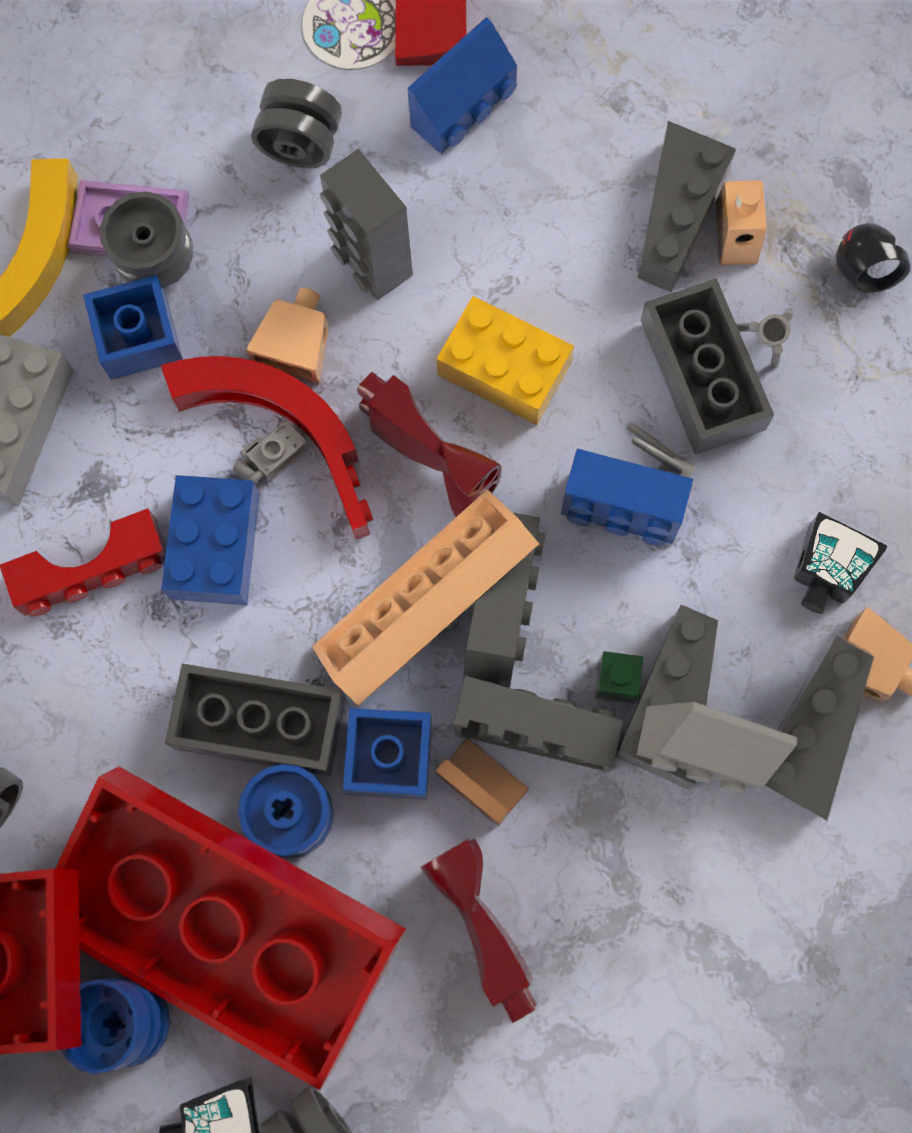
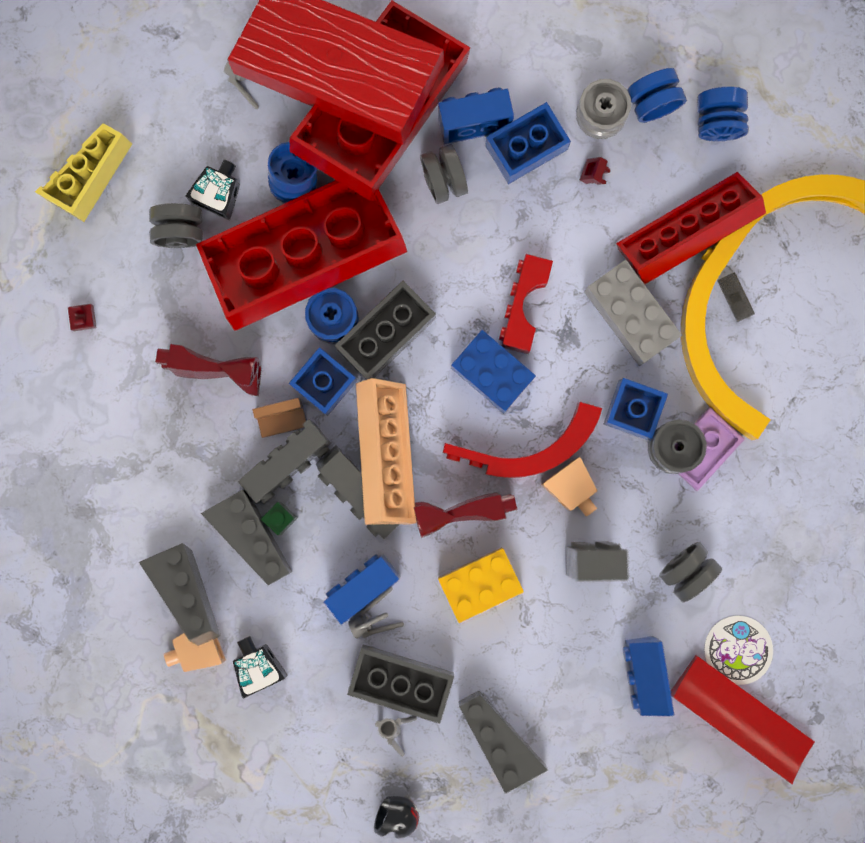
camera: 125 degrees right, 10 degrees up
(271, 454) = (517, 431): light grey piece -> none
(712, 745) = (207, 531): light grey slope -> none
(740, 212) = (465, 765): light nougat torso -> none

